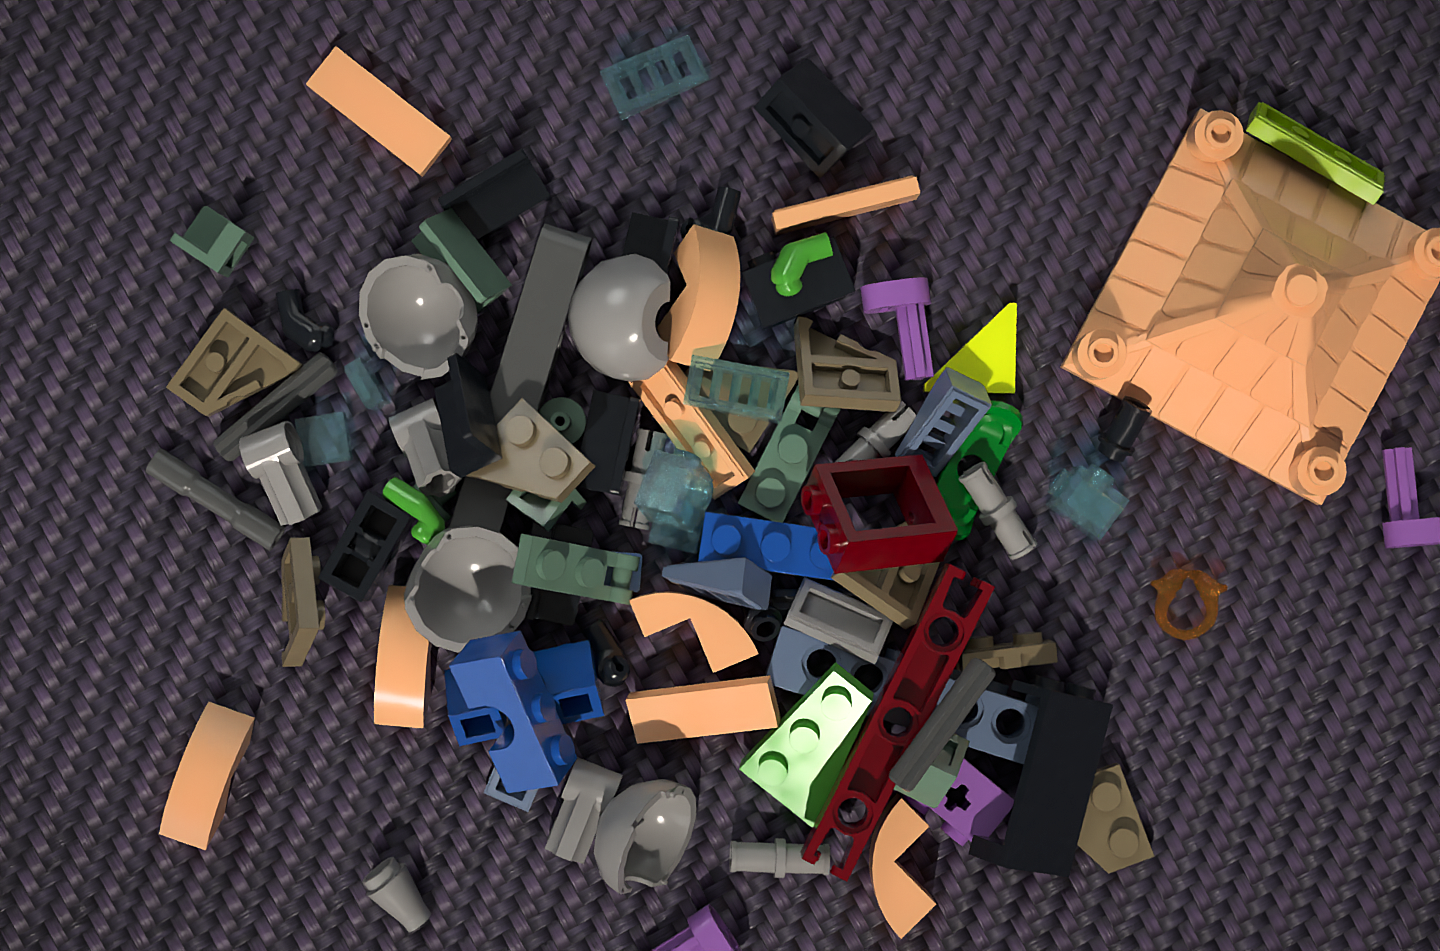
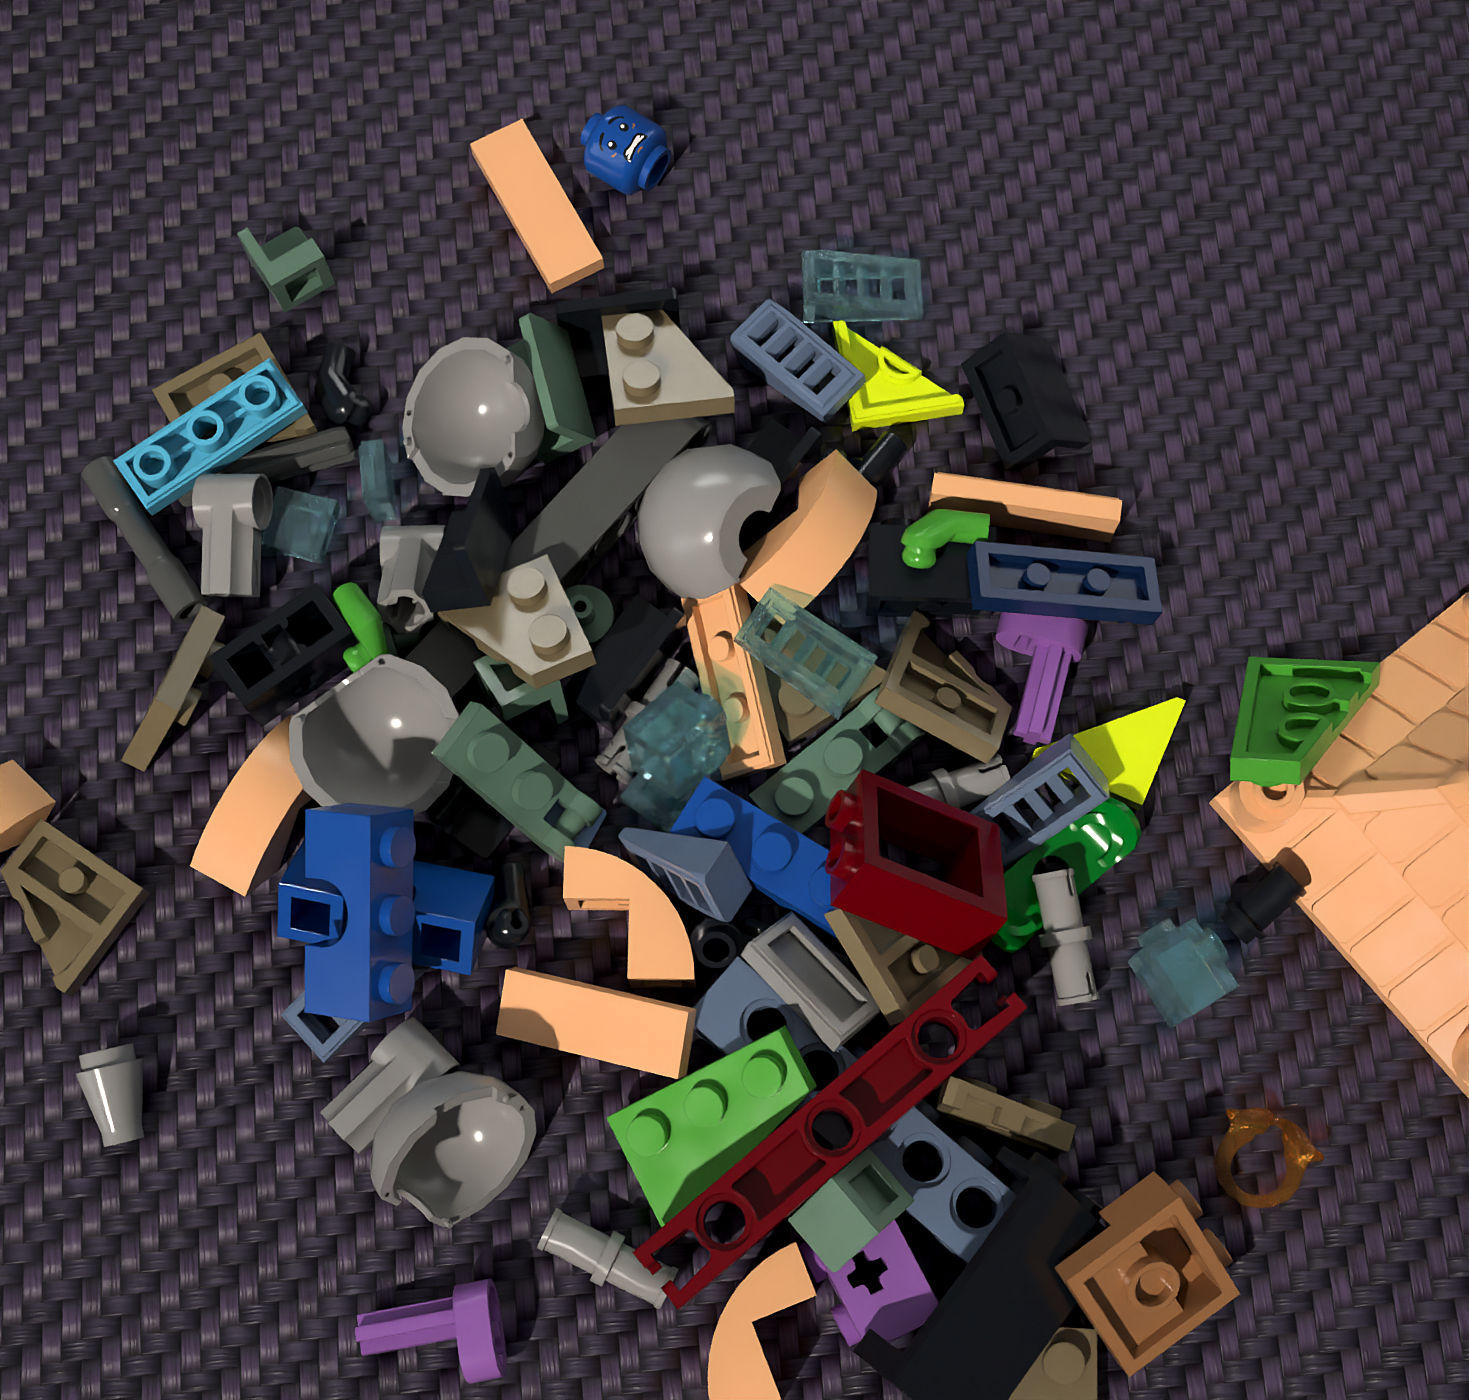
camera: 25 degrees right, 15 degrees down
(245, 379) = (244, 416): none -> medium azure tile
(300, 780) = (69, 902): none -> dark tan wing
(428, 40) = (625, 149): none -> blue head
(536, 218) = (659, 371): none -> wing
(596, 145) = (769, 334): none -> sand blue slope
(703, 148) = (893, 387): none -> neon yellow tile
(898, 259) = (1063, 583): none -> dark blue hinge
(942, 724) = (887, 1152): dark grey axle -> none
(1097, 290) = (1294, 715): none -> bright green wing
(1140, 717) = (1149, 1272): none -> medium nougat plate

